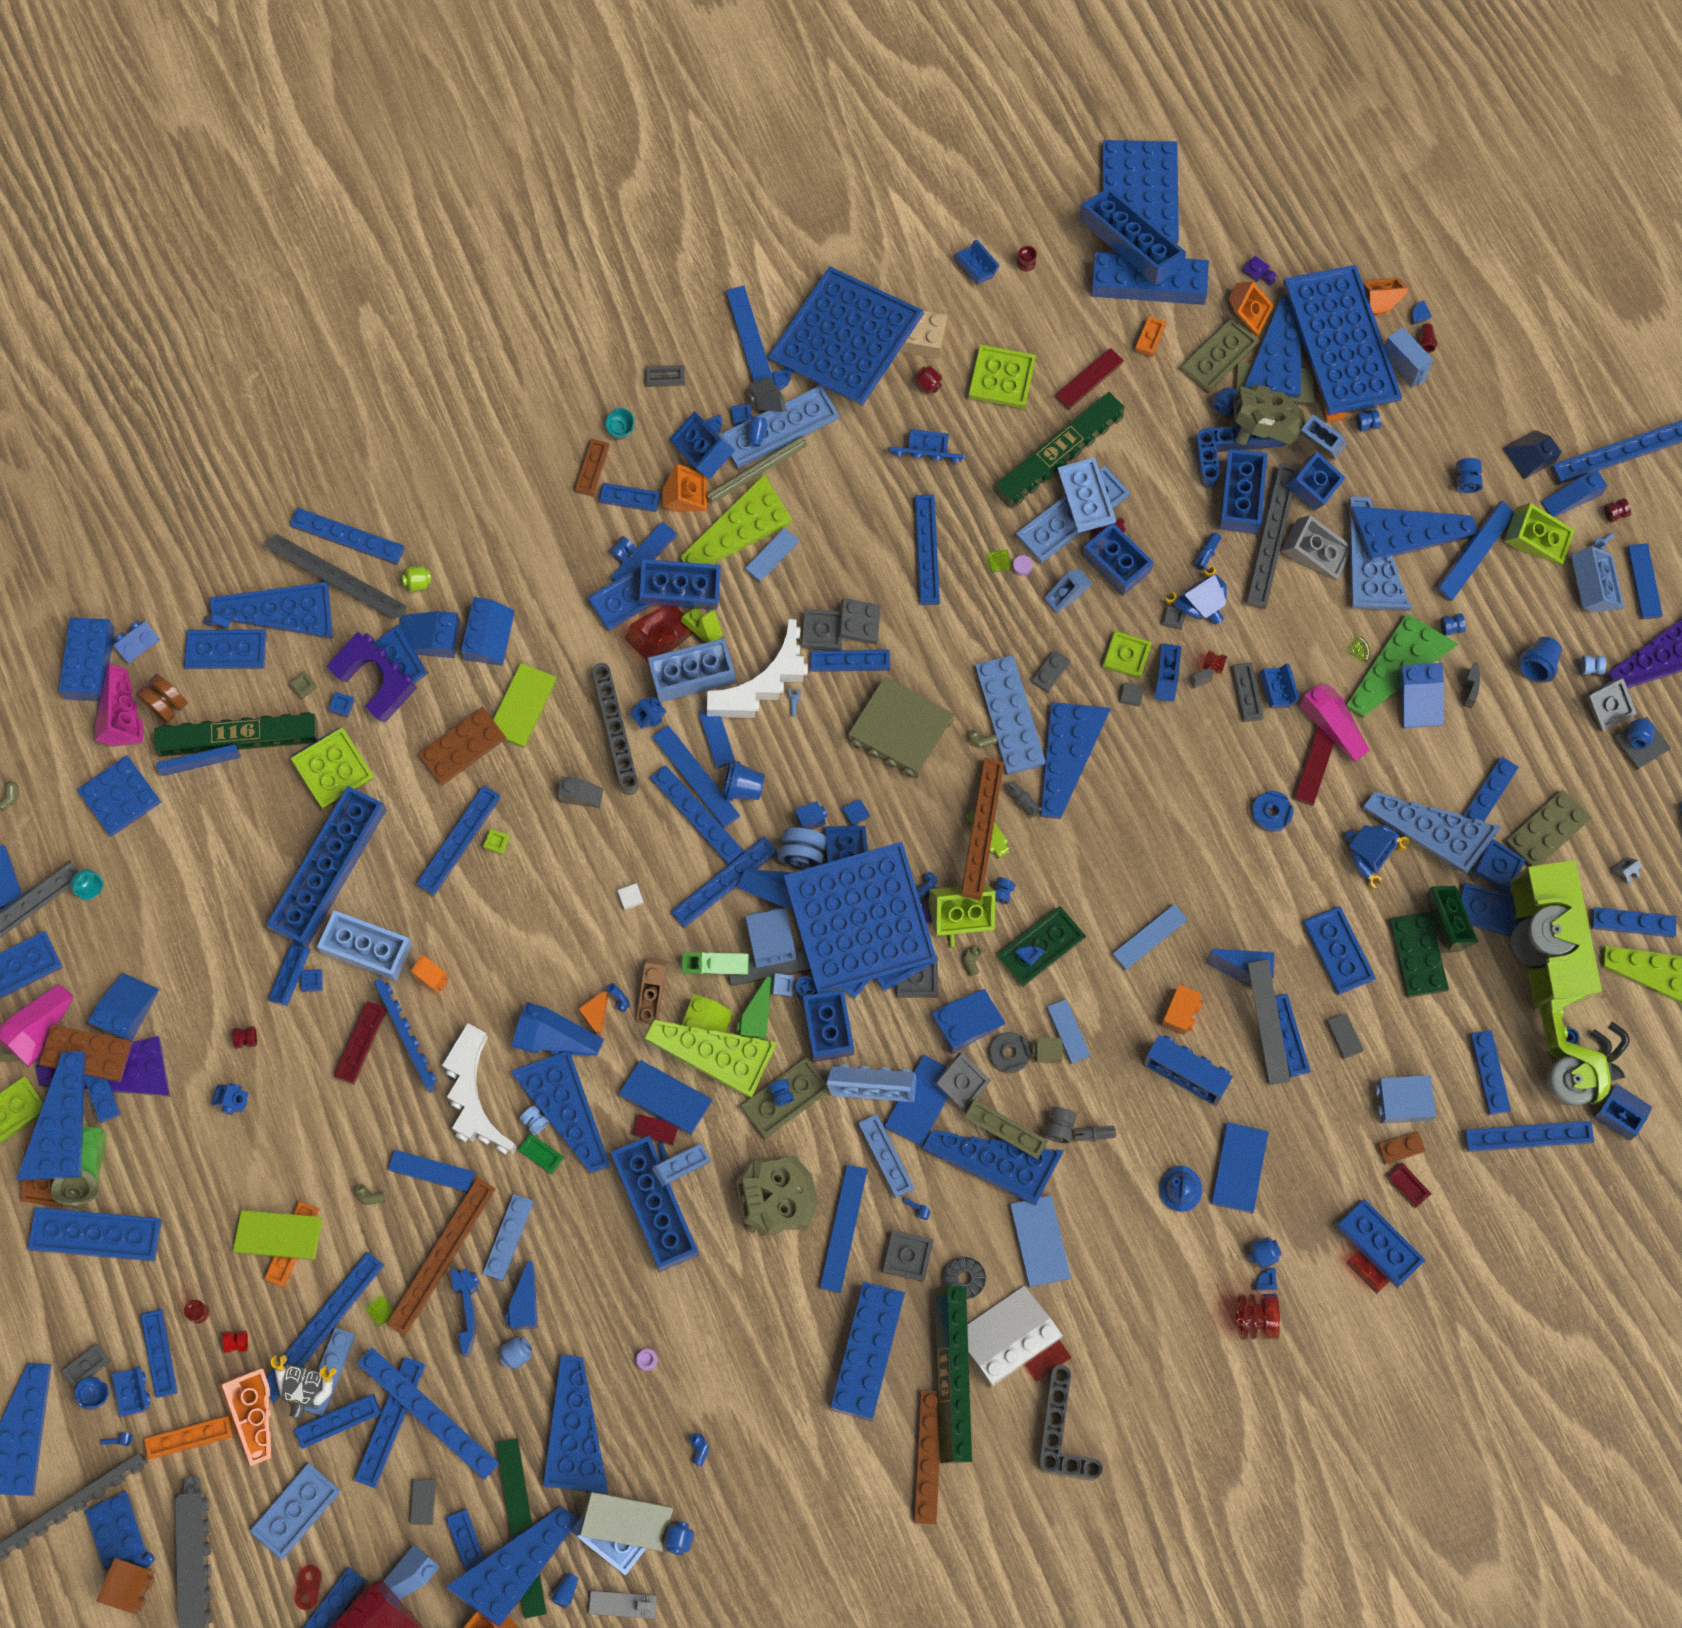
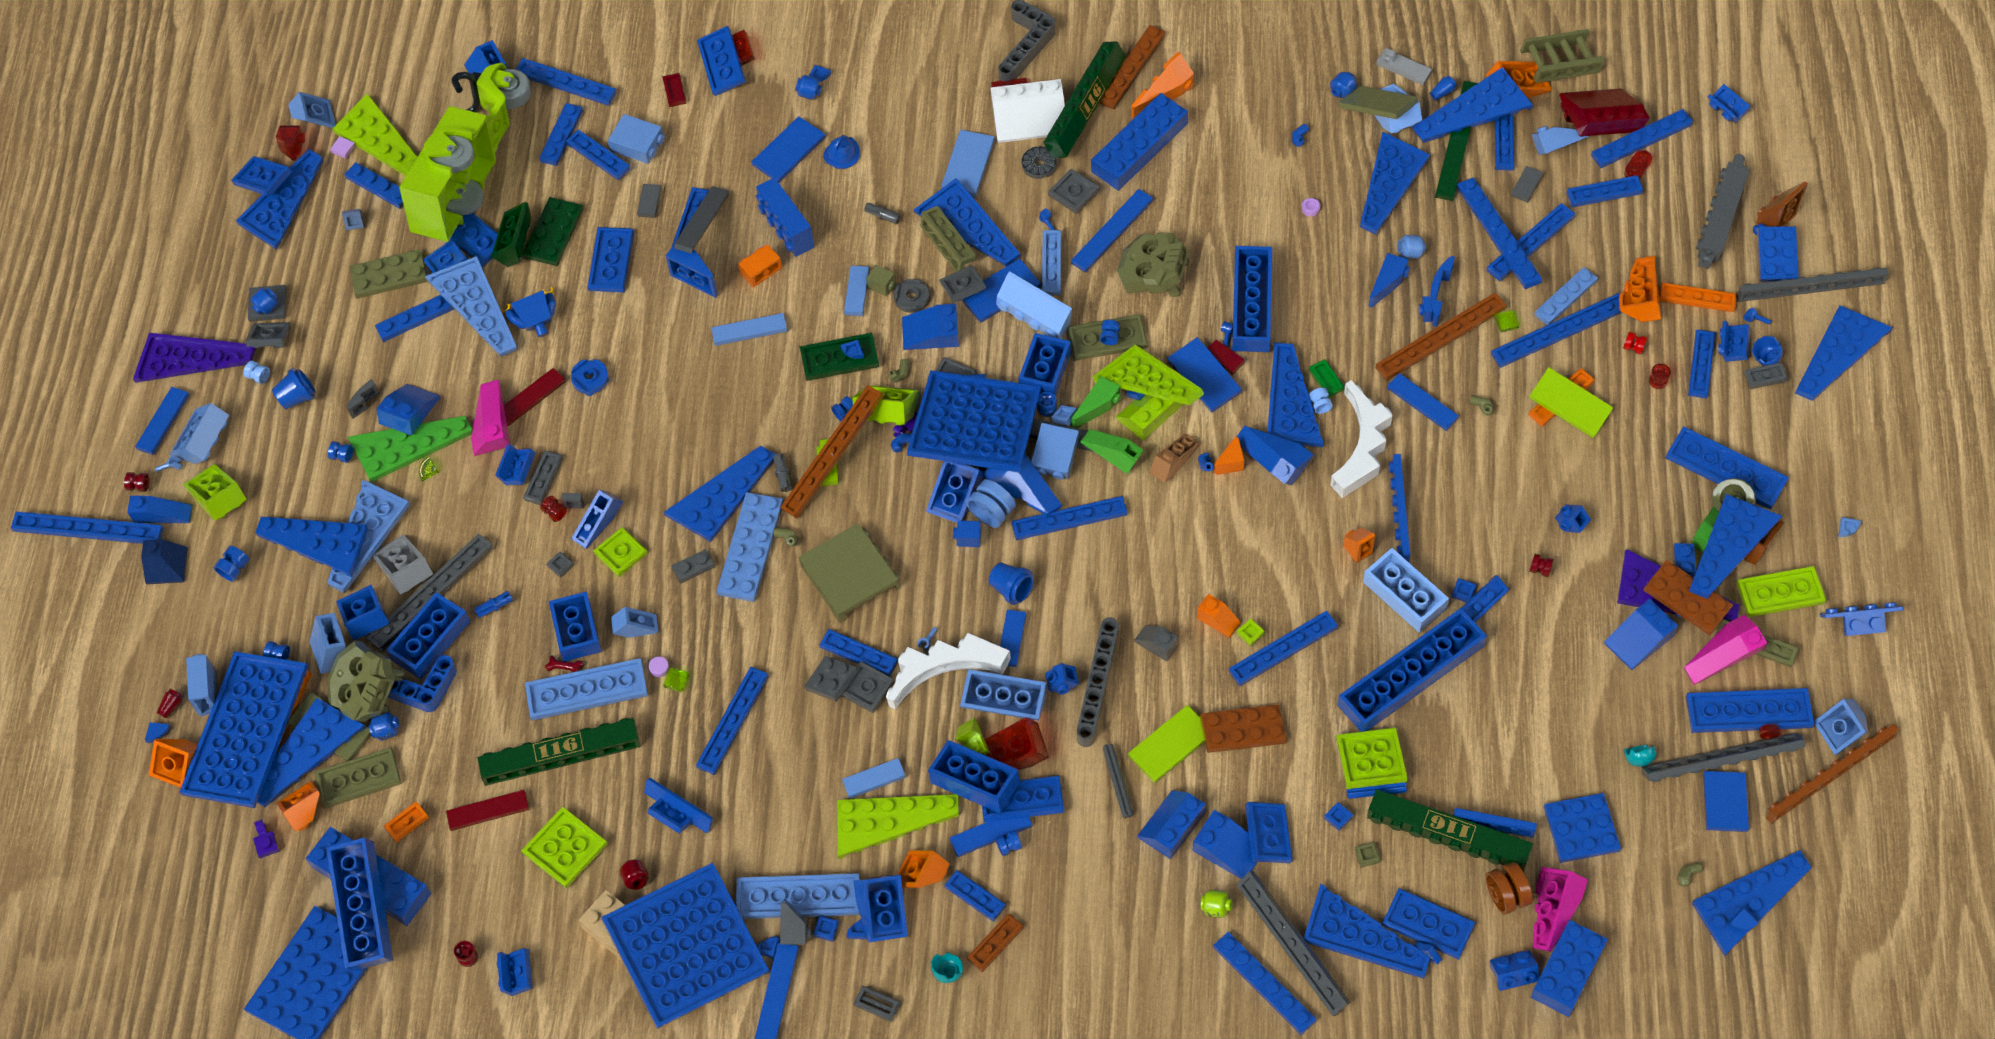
camera: 150 degrees left, 10 degrees down
(295, 1511) = (1629, 217): medium blue tile -> none
(302, 1386) = (1590, 282): torso -> none
(333, 1530) = (1604, 191): none -> blue plate
(337, 1421) = (1572, 256): blue tile -> none
(360, 1043) = (1441, 520): dark red plate -> none
(396, 684) = (1295, 846): dark purple arch -> none
(508, 1237) = (1380, 330): medium blue plate -> none
(534, 842) = (1217, 615): none -> orange slope
(554, 650) = (1118, 782): none -> dark grey axle
(630, 896) = (1155, 540): white tile -> none
(681, 1164) = (1217, 313): medium blue tile -> none
(696, 776) = (1048, 614): blue tile -> none
(697, 815) = (1064, 582): blue plate -> none
(756, 469) = (844, 865): olive axle -> none
(757, 429) = (820, 894): blue cone -> none
(856, 812) = (927, 524): blue tile -> none
(869, 1447) = (1172, 83): none -> orange wedge
(1059, 1128) = (904, 226): dark grey wheel -> none
(1086, 495) = (565, 688): light blue plate -> none
(1132, 694) = (638, 517): dark grey tile -> none
(1203, 598) = (526, 561): torso -> none
(1257, 1317) = (841, 45): clear red wheel -> none
(1401, 1148) = (661, 114): dark orange plate -> none
(1433, 1063) = (598, 155): none -> blue plate
(1475, 551) = (274, 503): blue tile -> none

